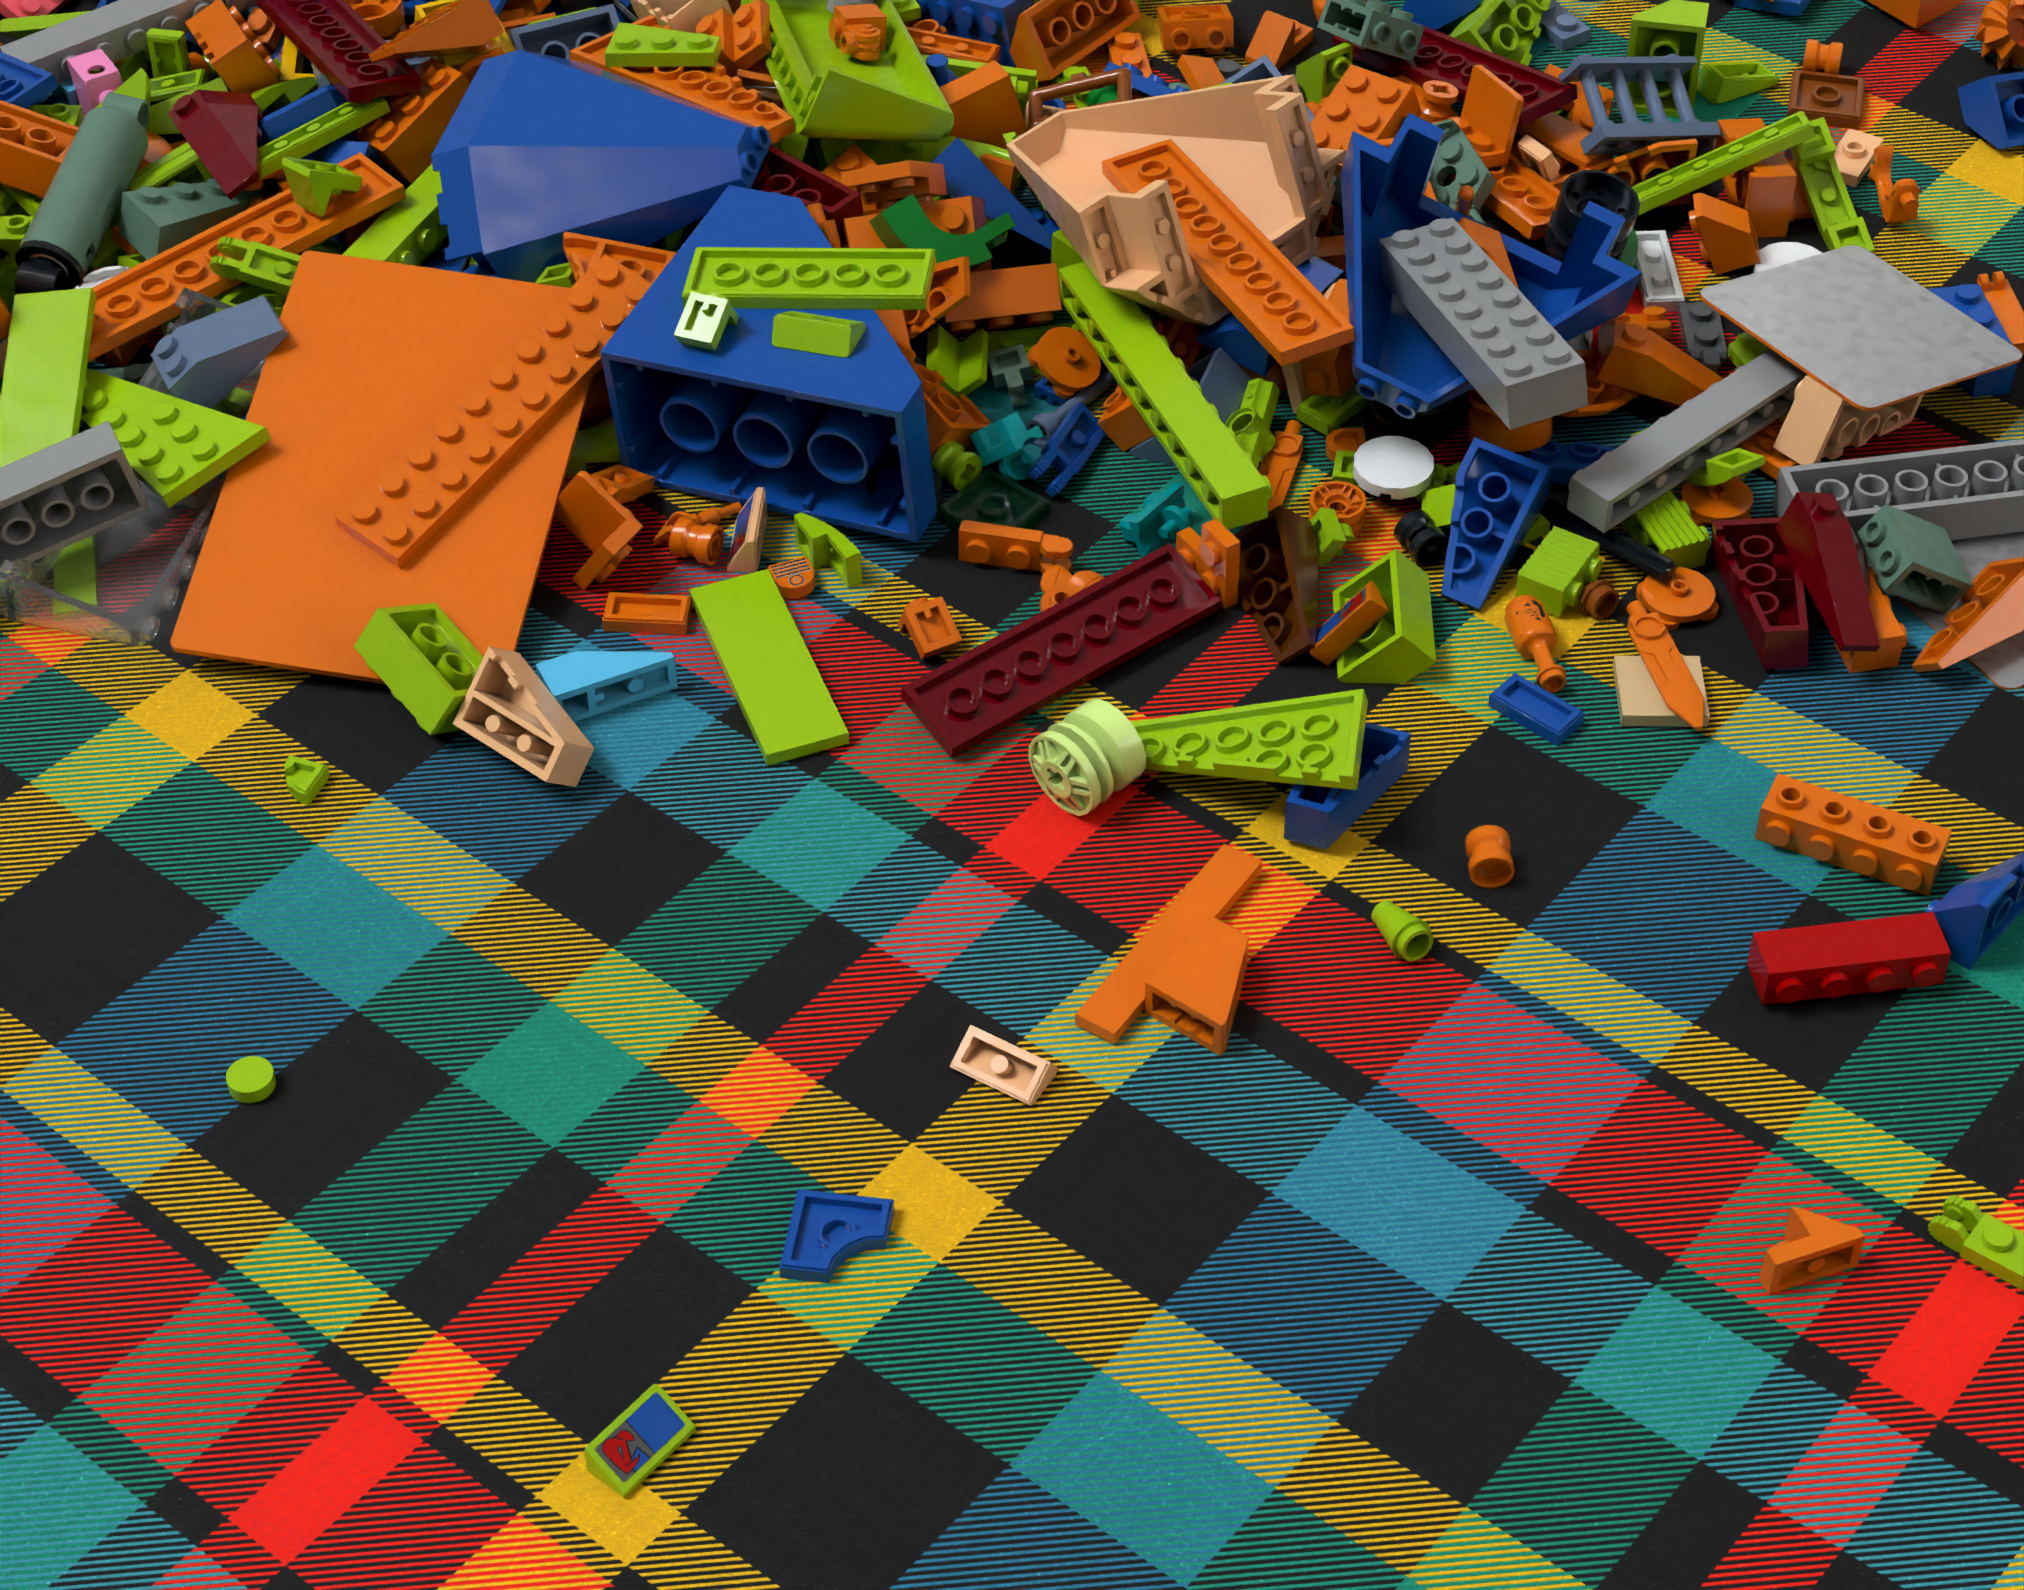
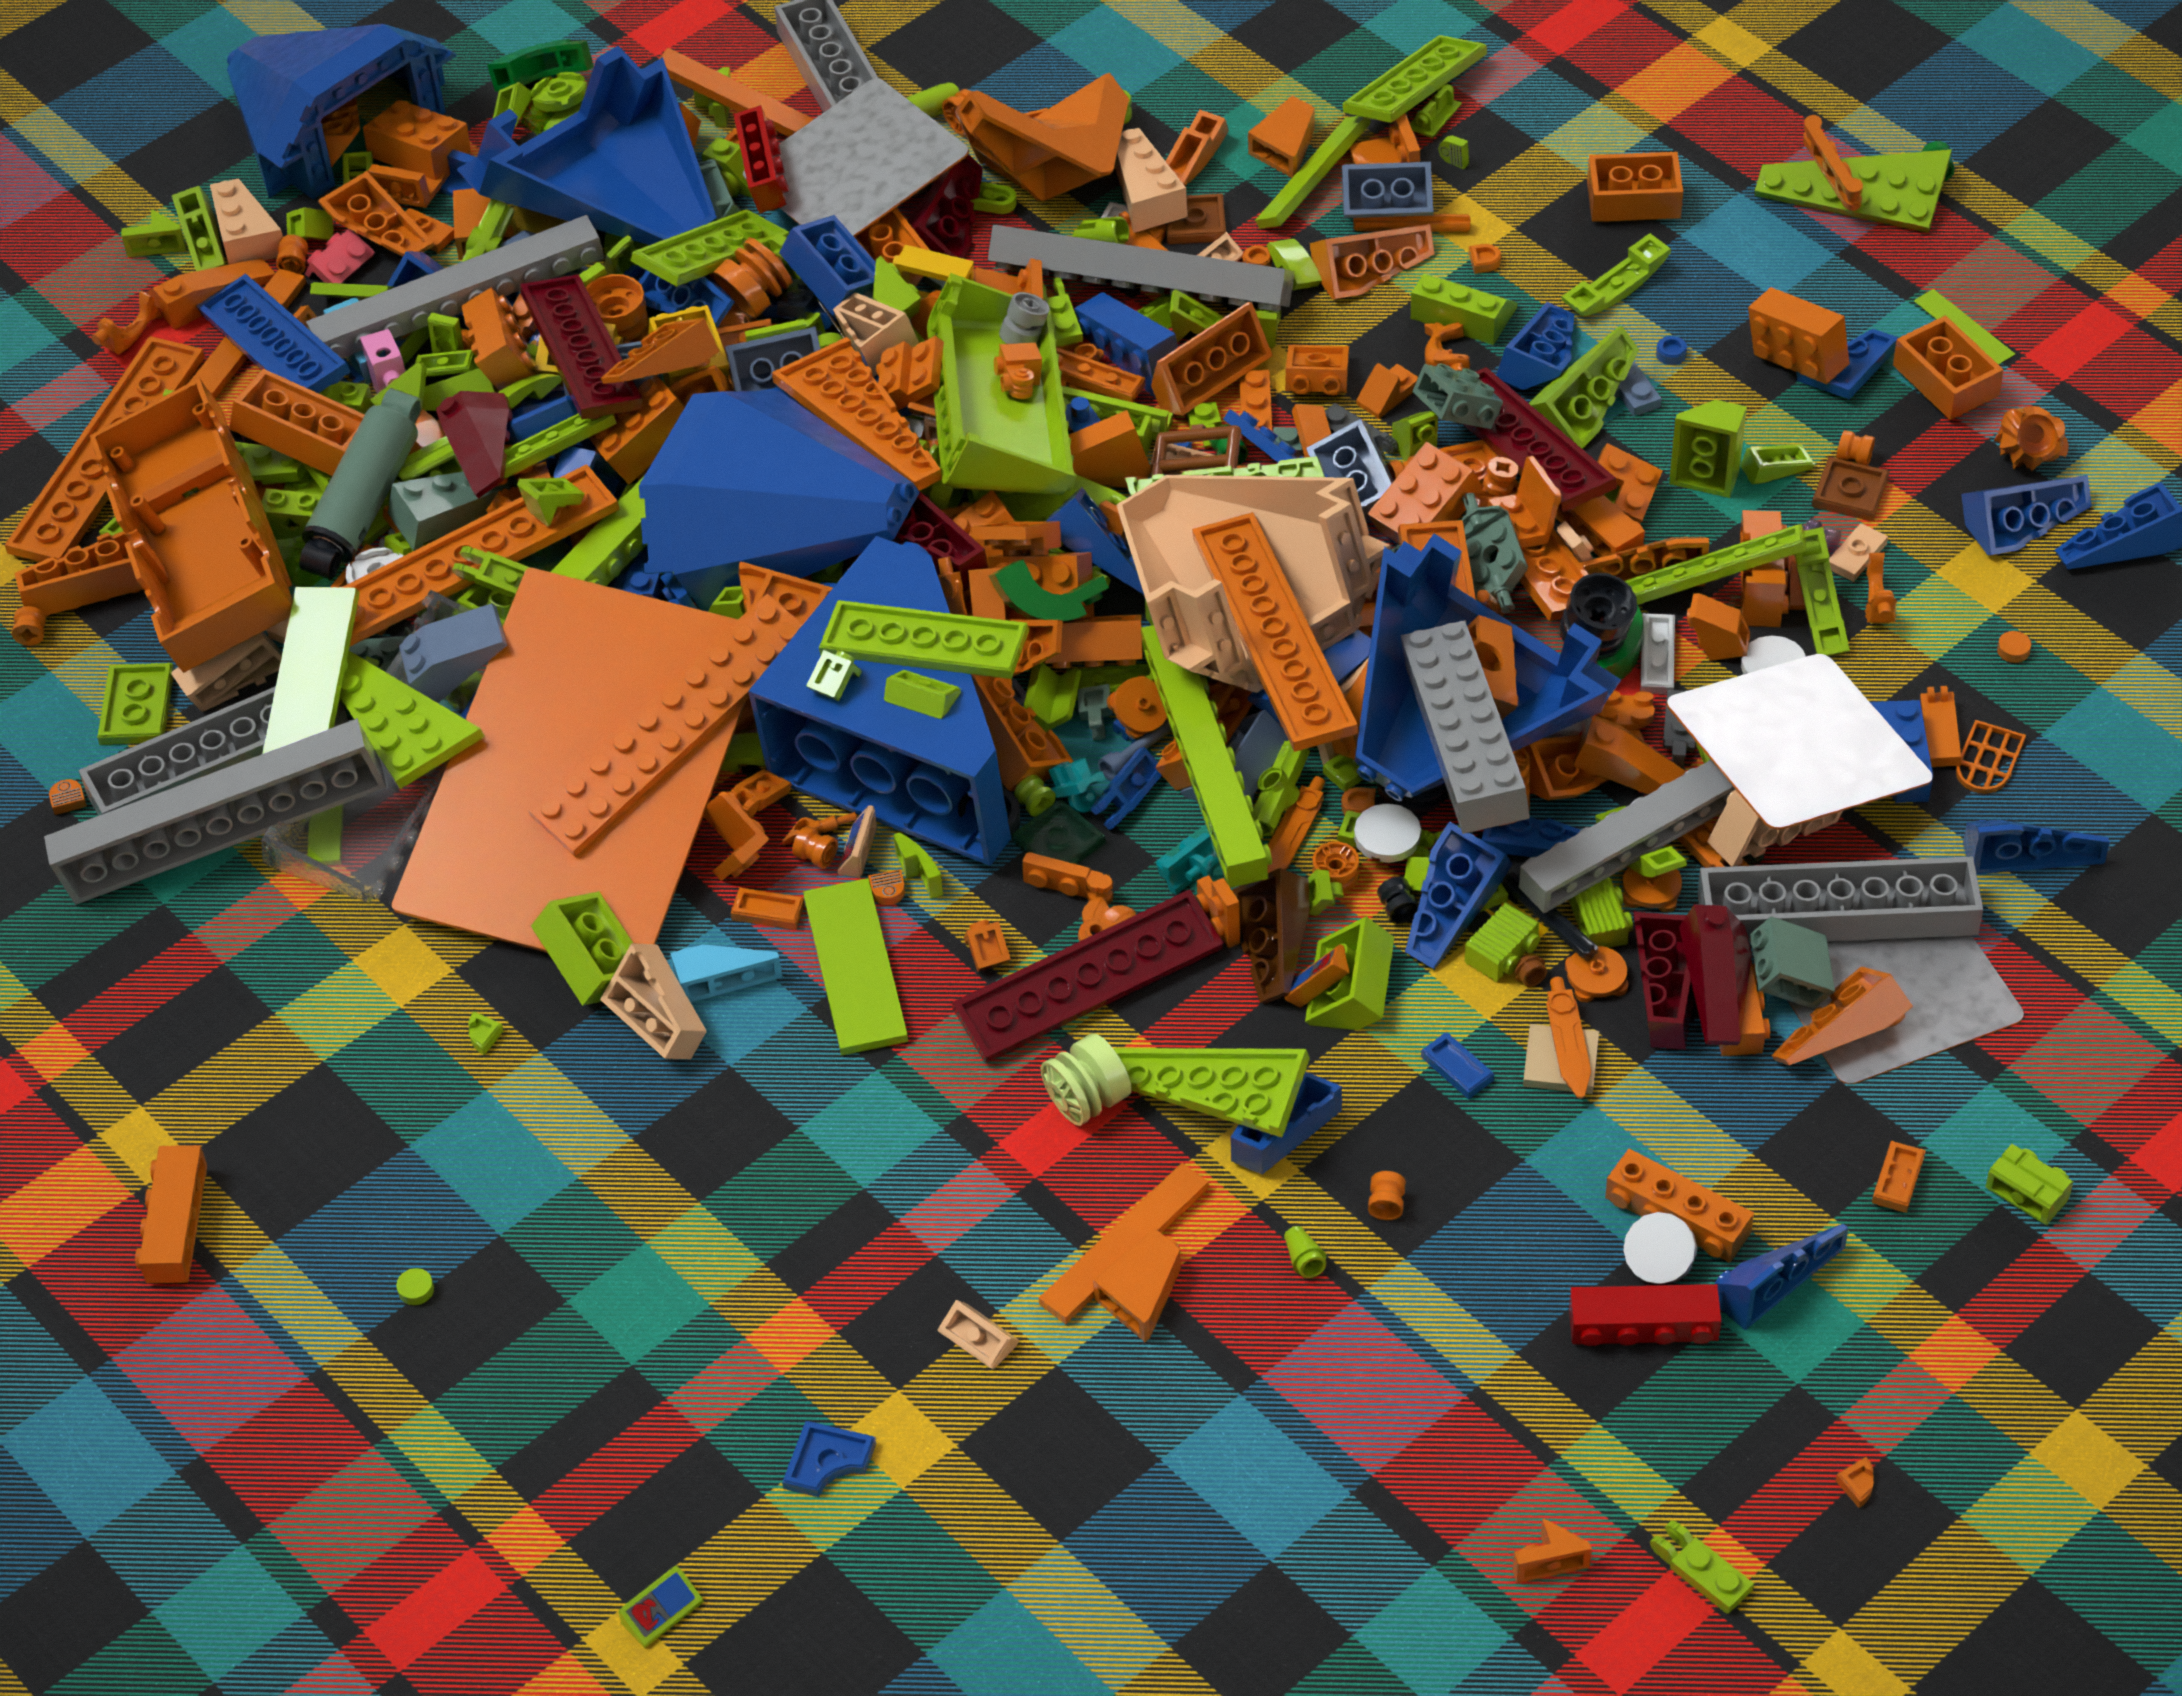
camera: 10 degrees right, 5 degrees up
(659, 47) = (845, 379): lime wing -> none
(1535, 639) = (1468, 1003): orange piece -> none
(1633, 133) = (1661, 524): sand blue fence -> none
(1845, 881) = (1660, 1248): none -> white tile

